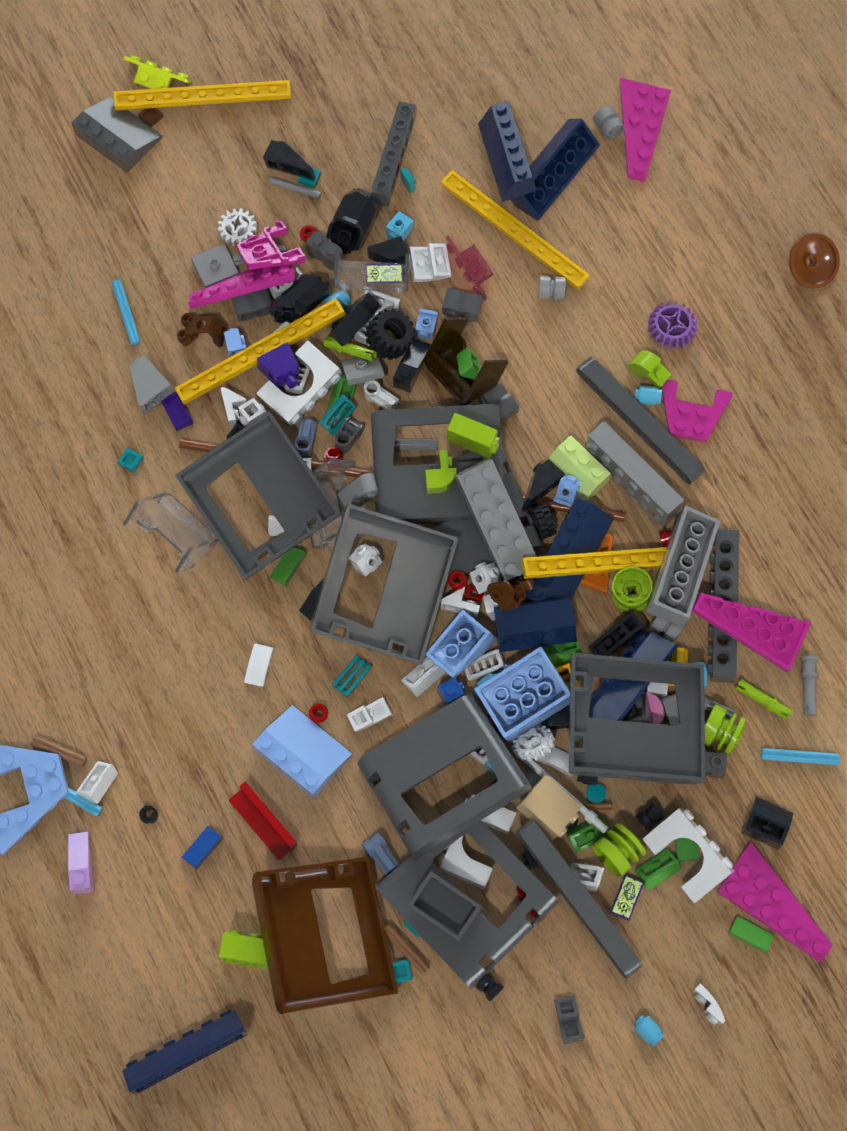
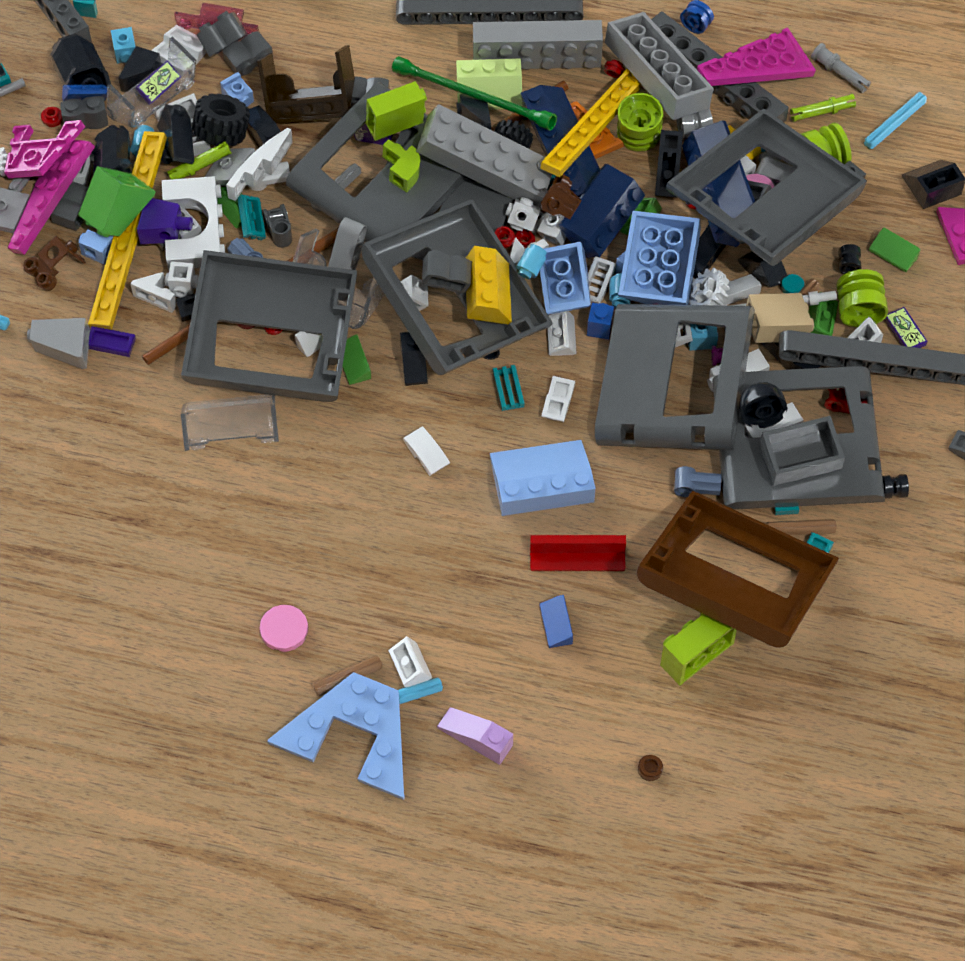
camera: 50 degrees left, 10 degrees down
(60, 685) = (284, 628): none -> bright pink tile
(130, 460) = (119, 412): teal tile -> none
(146, 990) = (650, 768): none -> reddish brown tile
(154, 814) = (477, 648): black bush -> none
(184, 1052) = (741, 771): dark blue slope -> none
(266, 326) = (114, 201): none -> bright green slope
(318, 707) = (521, 432): red plate -> none
(332, 453) = (285, 250): red plate -> none
(336, 237) = (83, 91): none -> blue slope
(381, 385) = (262, 160): none -> white slope
(382, 569) = (446, 271): none -> dark grey brick
(402, 604) = (489, 290): none -> yellow slope
(447, 614) = (531, 261): none -> medium azure brick
(457, 277) = (221, 33): none -> dark grey brick
(459, 852) = (762, 405): none -> black cylinder
(468, 364) = (311, 85): bright green slope -> none
(564, 530) = (542, 118): none -> green hose
(567, 498) = (502, 91): light blue brick -> none
(658, 869) = (900, 289): bright green slope -> none
(715, 866) = (940, 240): white arch -> none
(759, 556) = (697, 16): none -> blue wheel

